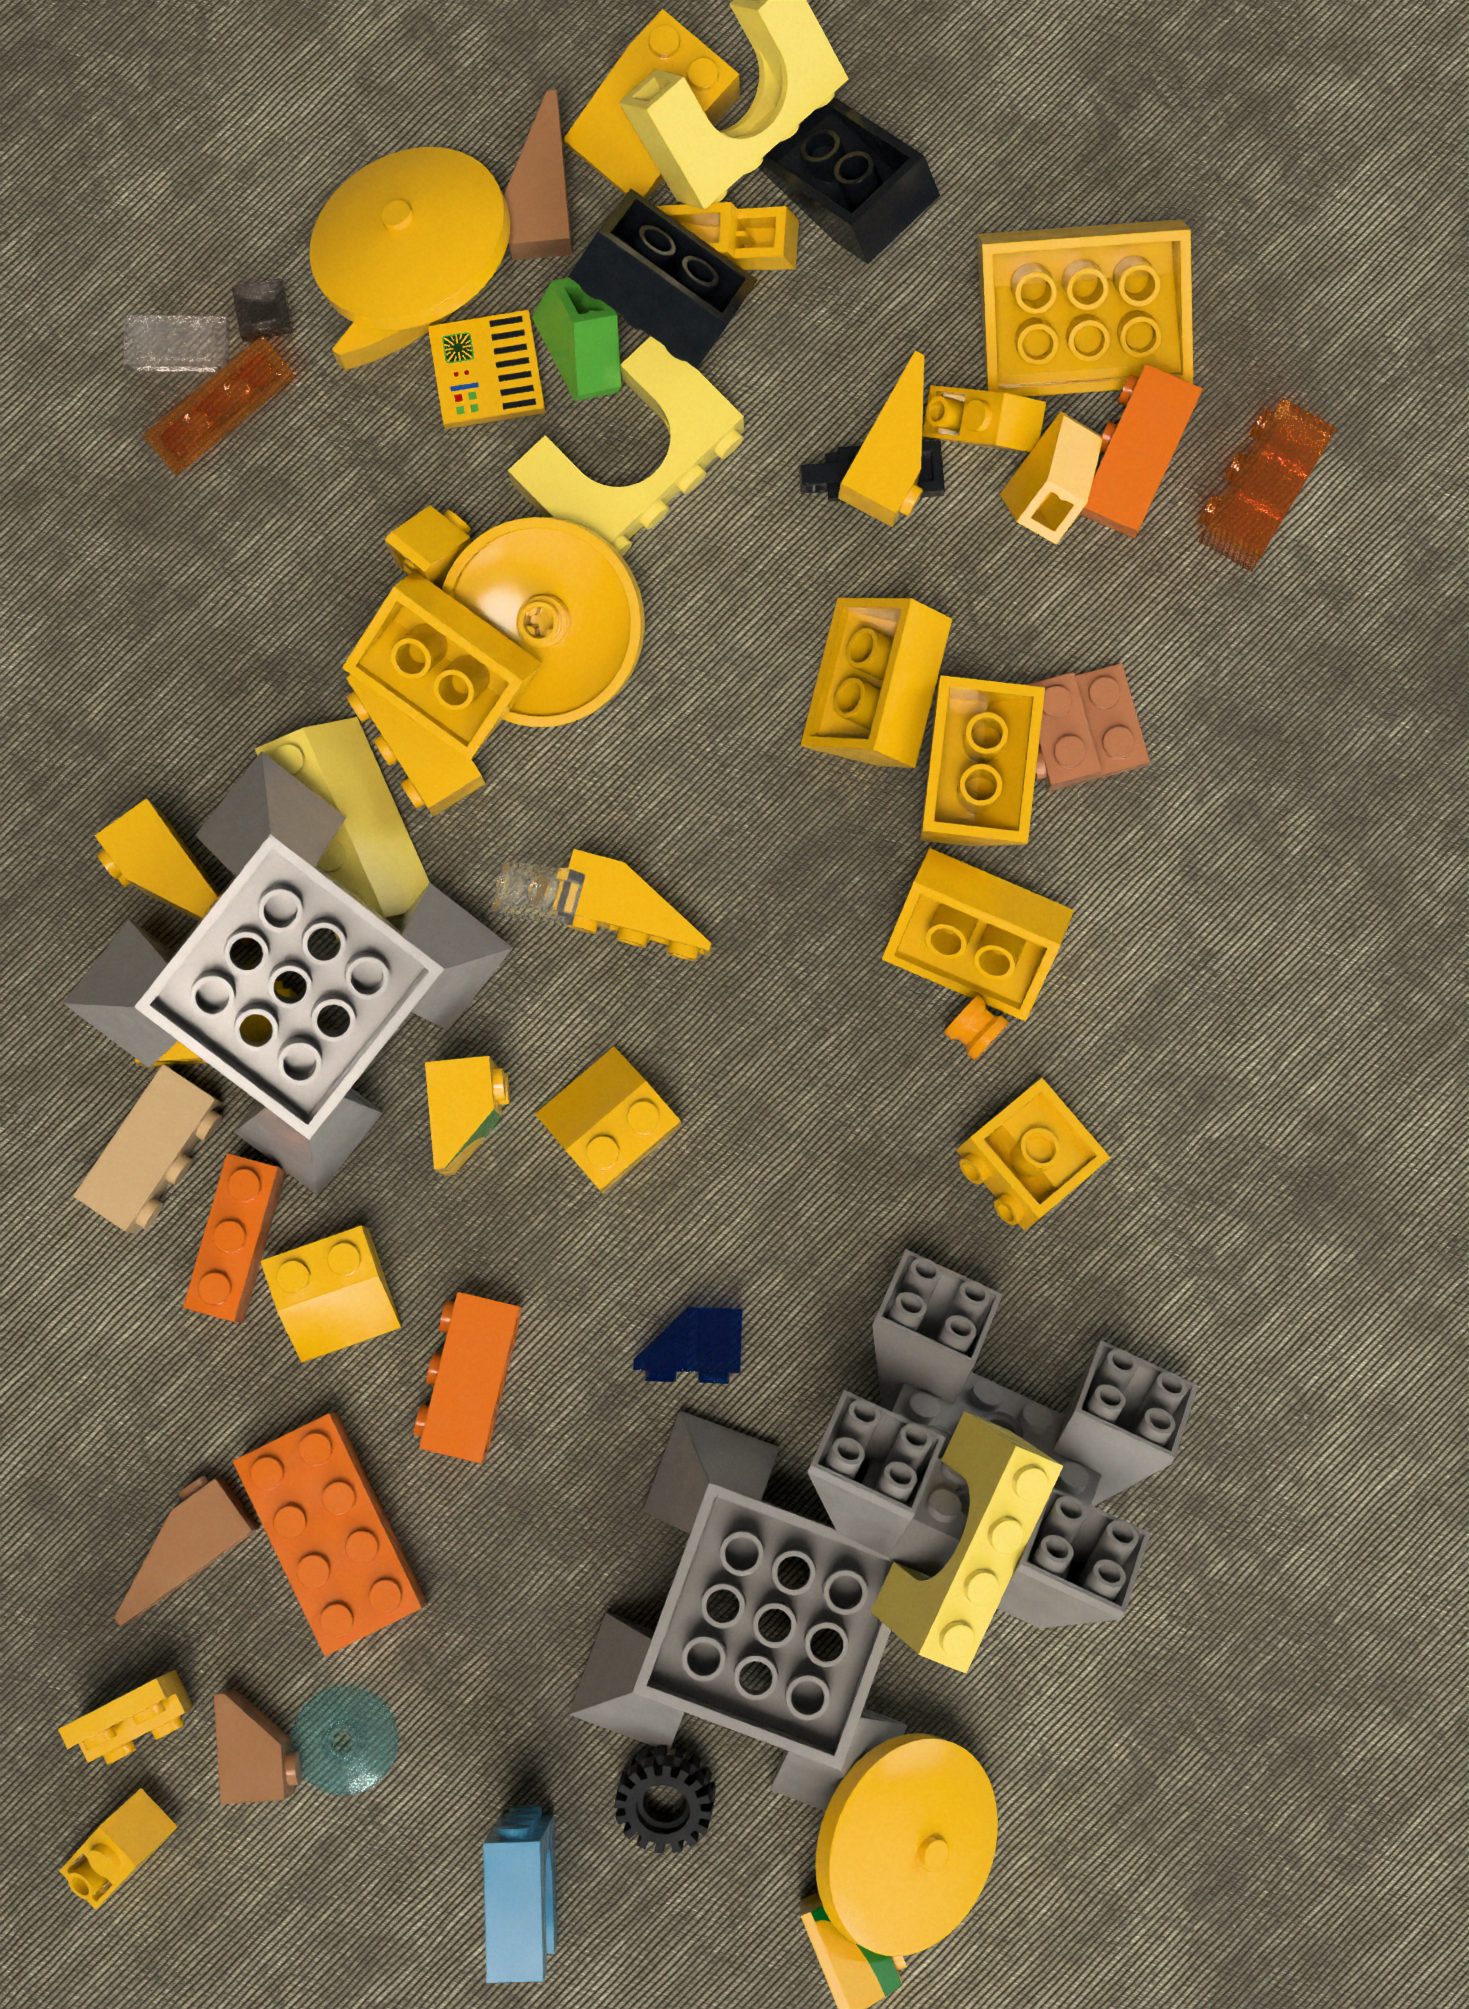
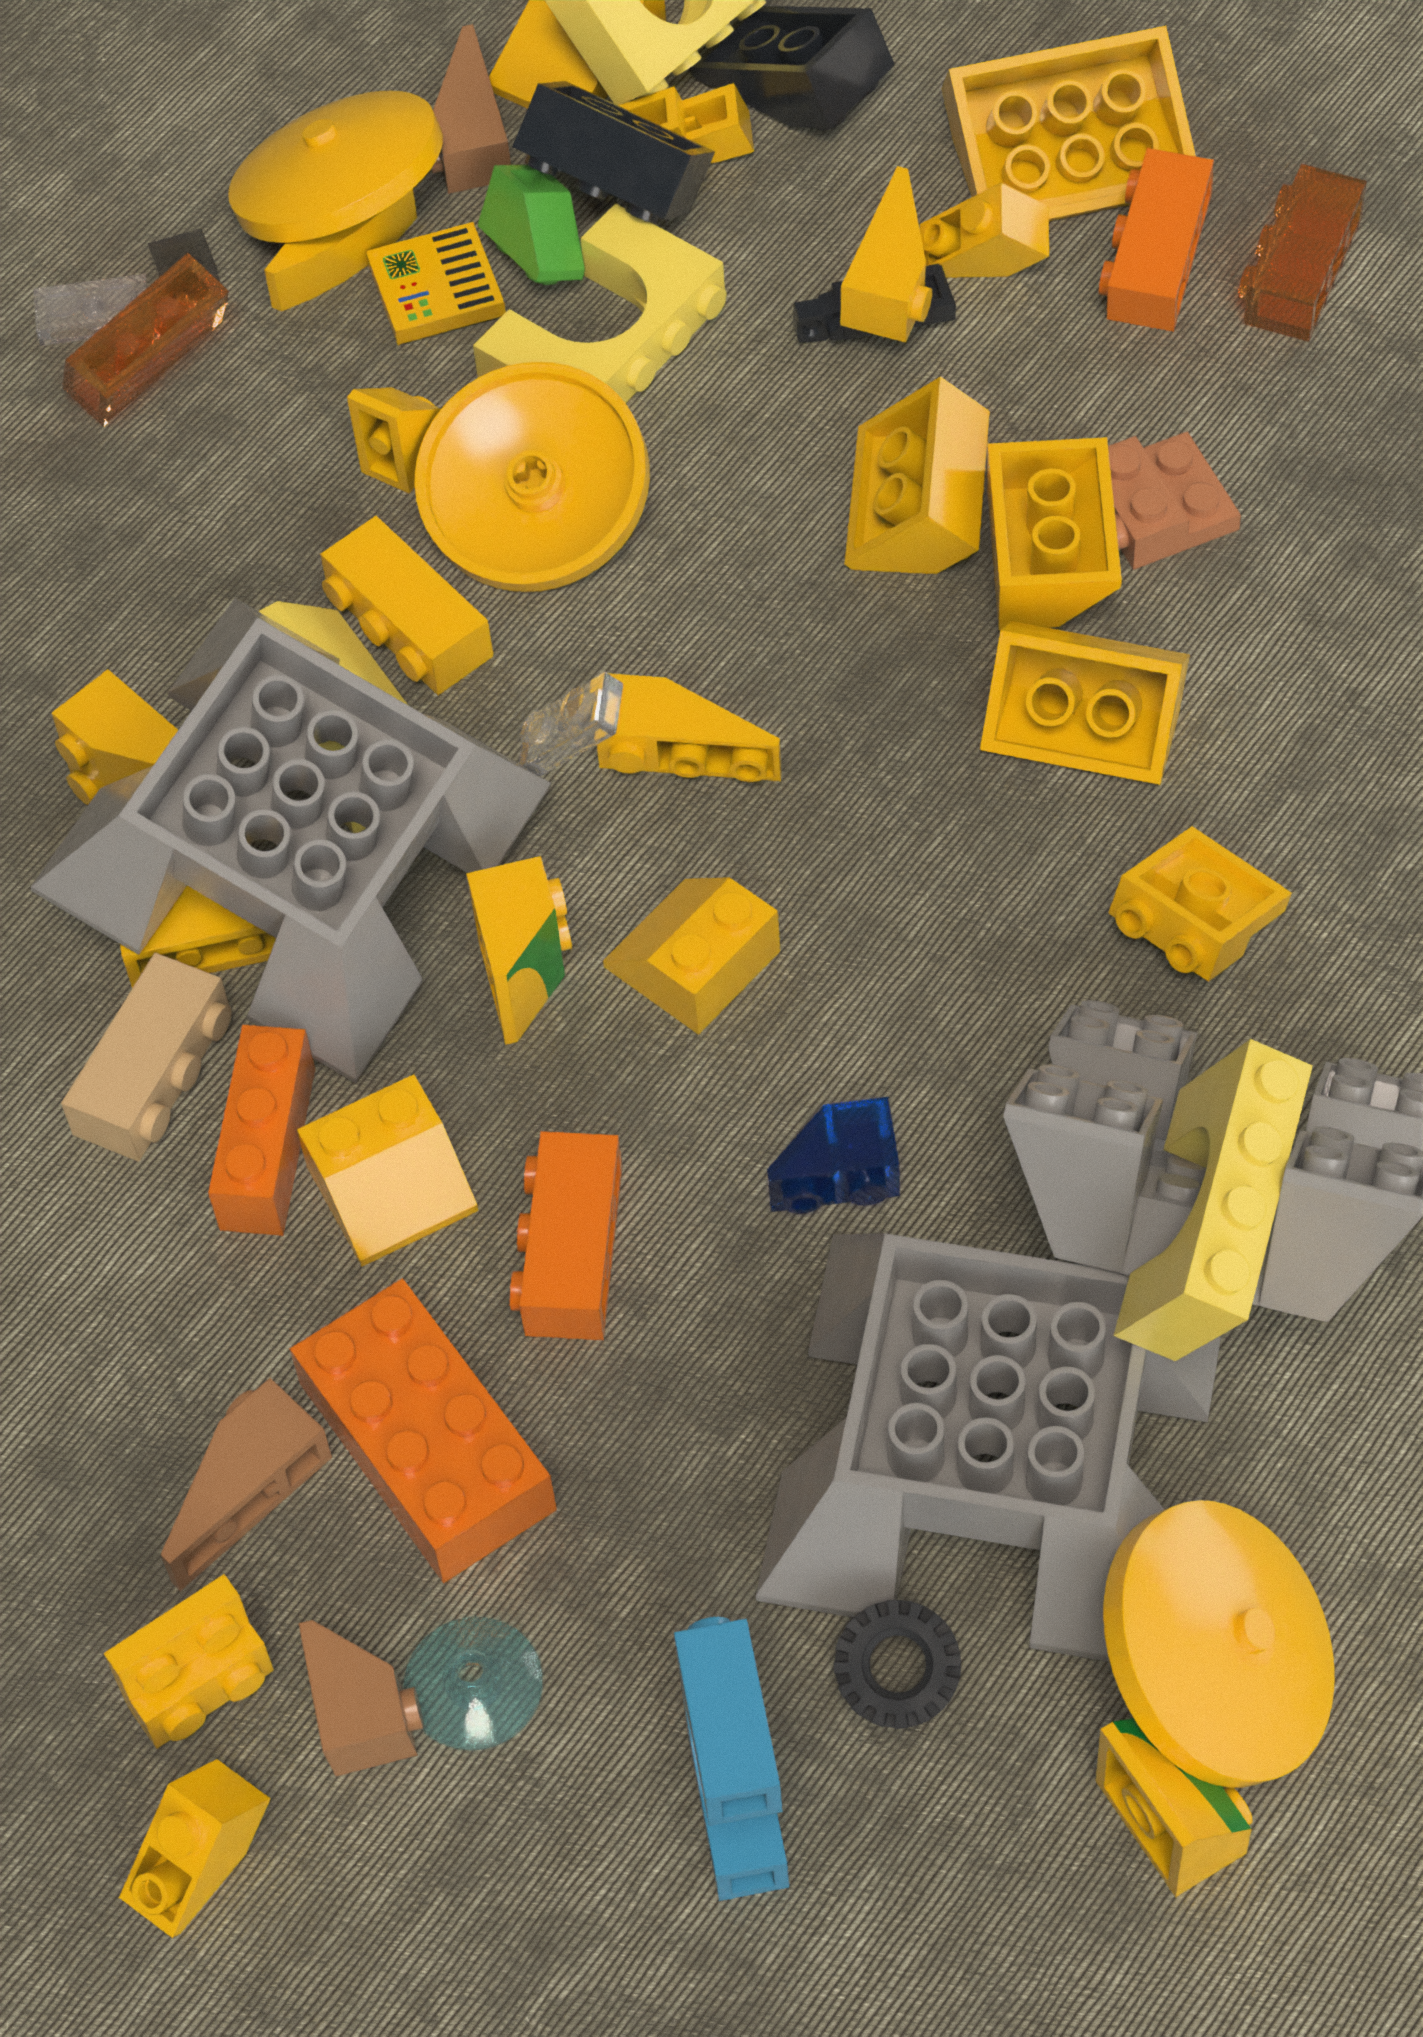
camera: 10 degrees left, 25 degrees down
(441, 664) = (426, 515): yellow slope -> none
(976, 1027) = (1103, 789): light orange wheel -> none
(1054, 478) = (1072, 267): yellow slope -> none

